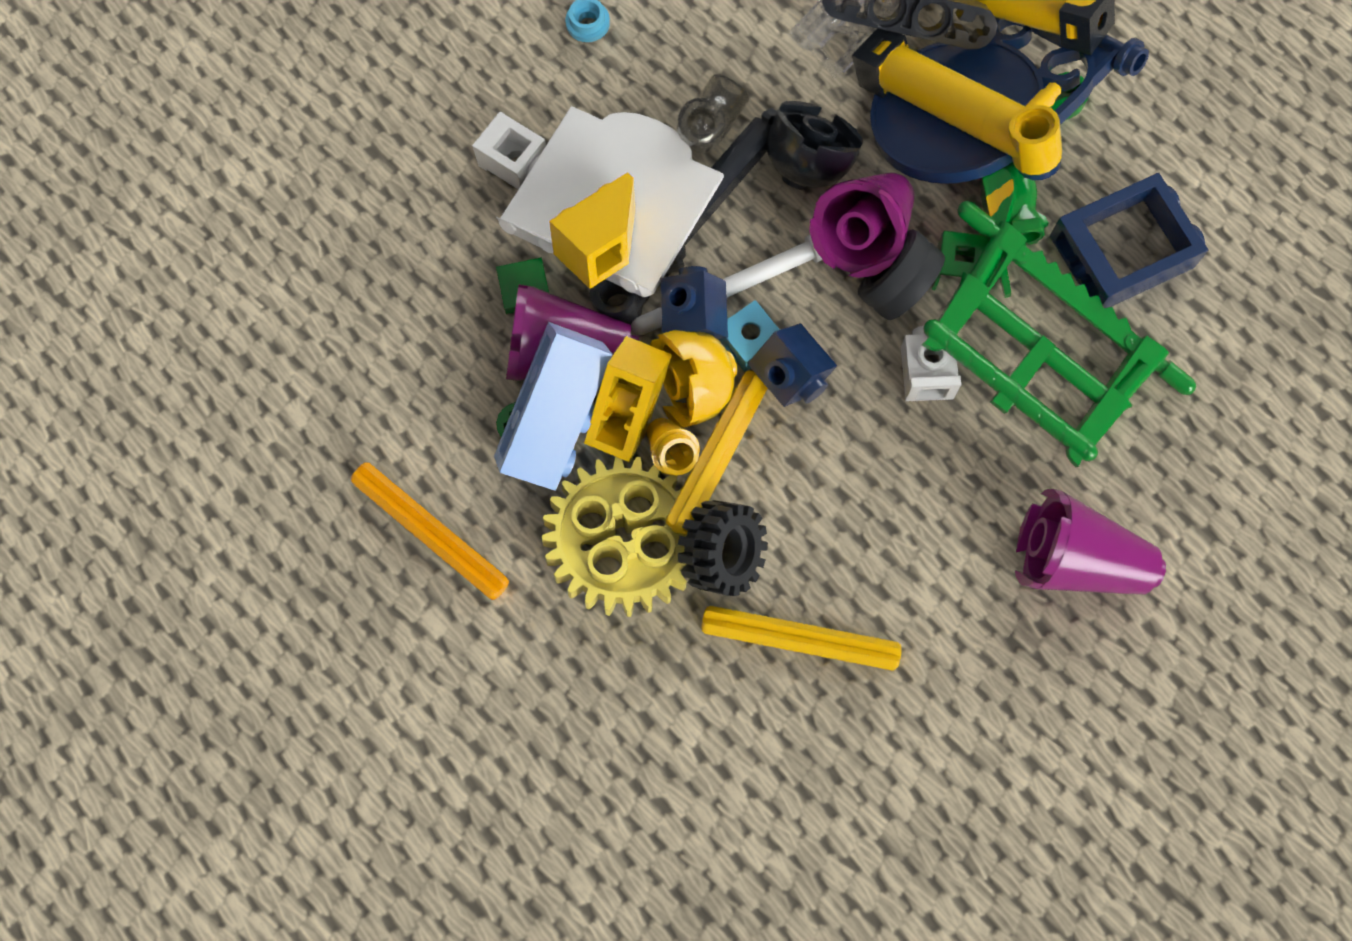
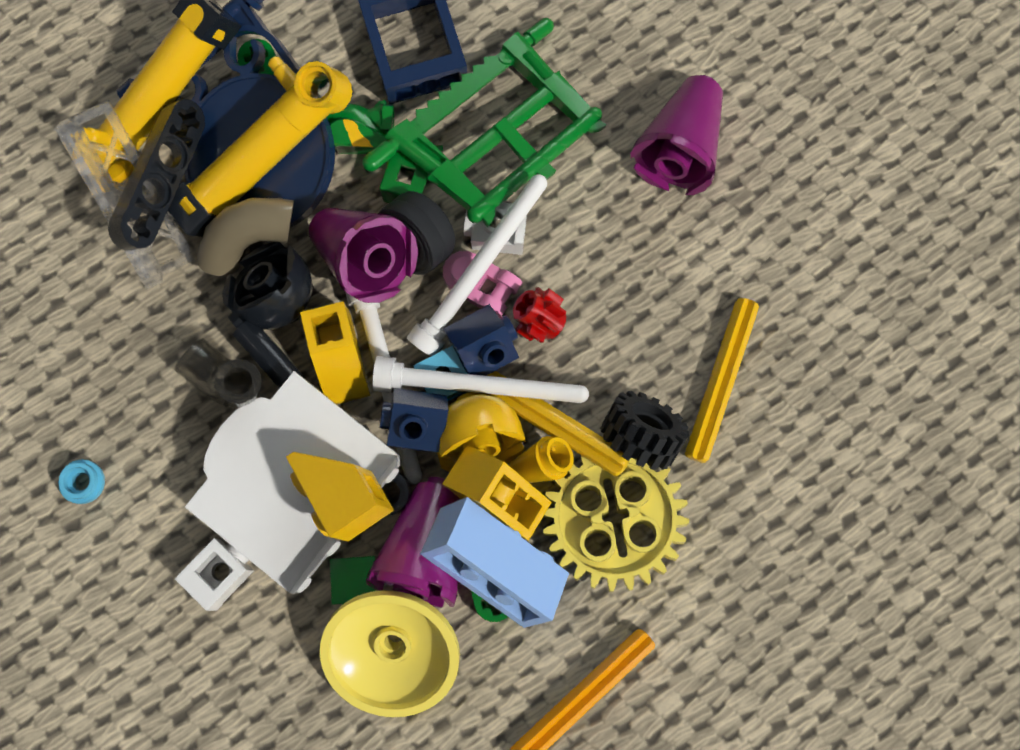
camera: 85 degrees left, 5 degrees up
(450, 323) = (385, 674): none -> light yellow dish
(741, 275) = (392, 374): none -> white piece
(756, 221) = (335, 352): none -> yellow slope
(791, 310) = (430, 333): none -> white piece
(836, 422) = (539, 314): none -> red gear
(871, 345) = (505, 280): none -> bright pink plate
(872, 104) = (239, 227): none -> dark tan cylinder

